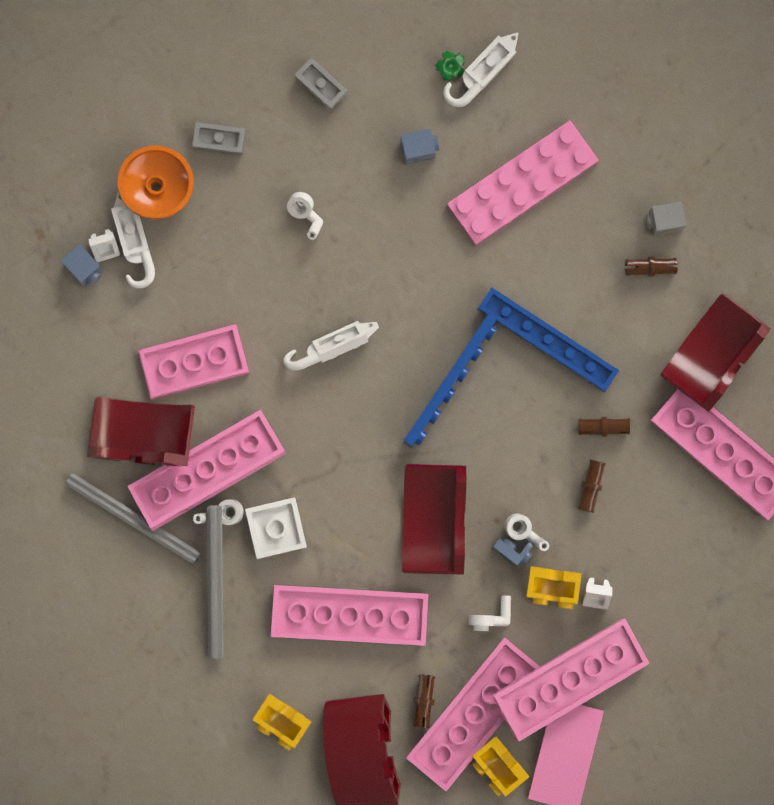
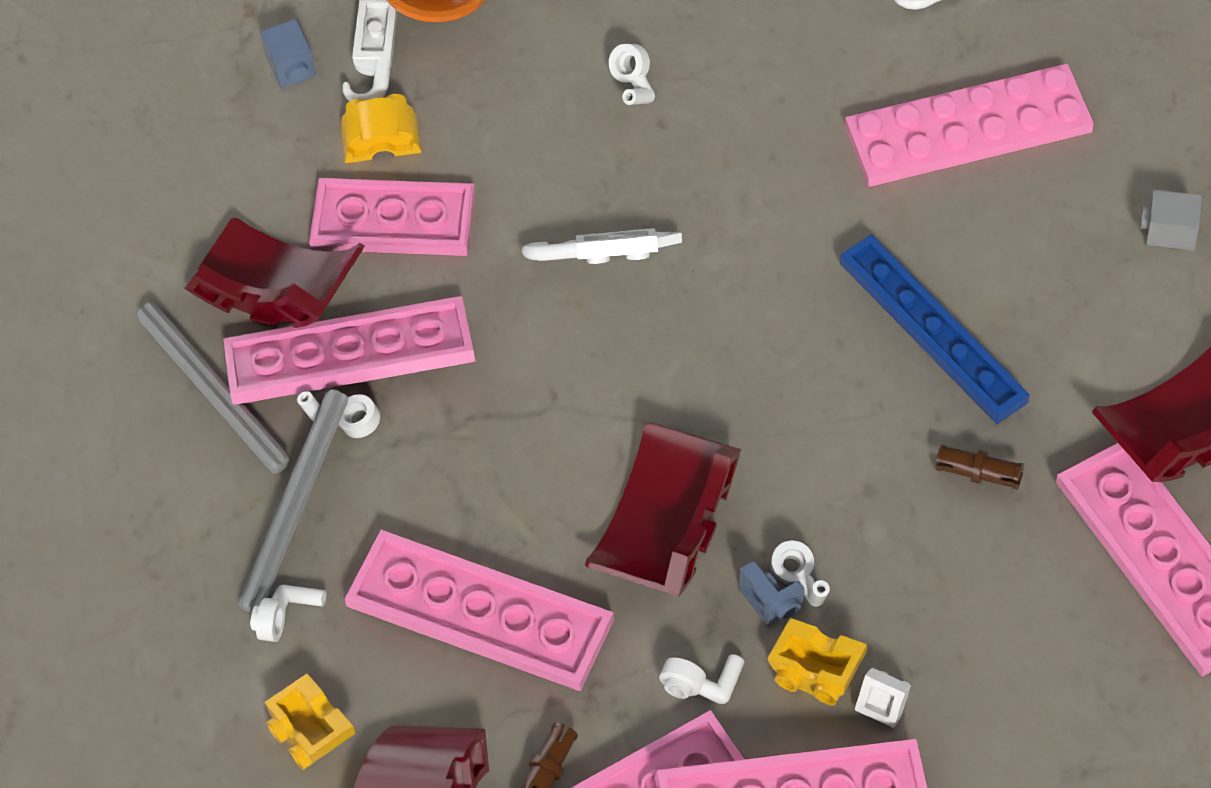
camera: 30 degrees right, 25 degrees down
(104, 246) = (330, 40): white tile -> none
(161, 302) = (379, 126): none -> yellow cylinder
(230, 662) = (269, 616): none -> white plate
(276, 528) = (417, 458): white plate -> none
(419, 146) = (830, 37): sand blue brick -> none
(445, 390) = (759, 339): blue plate -> none
(591, 486) = (930, 542): reddish brown pin -> none
(651, 266) = (1128, 276): reddish brown pin -> none

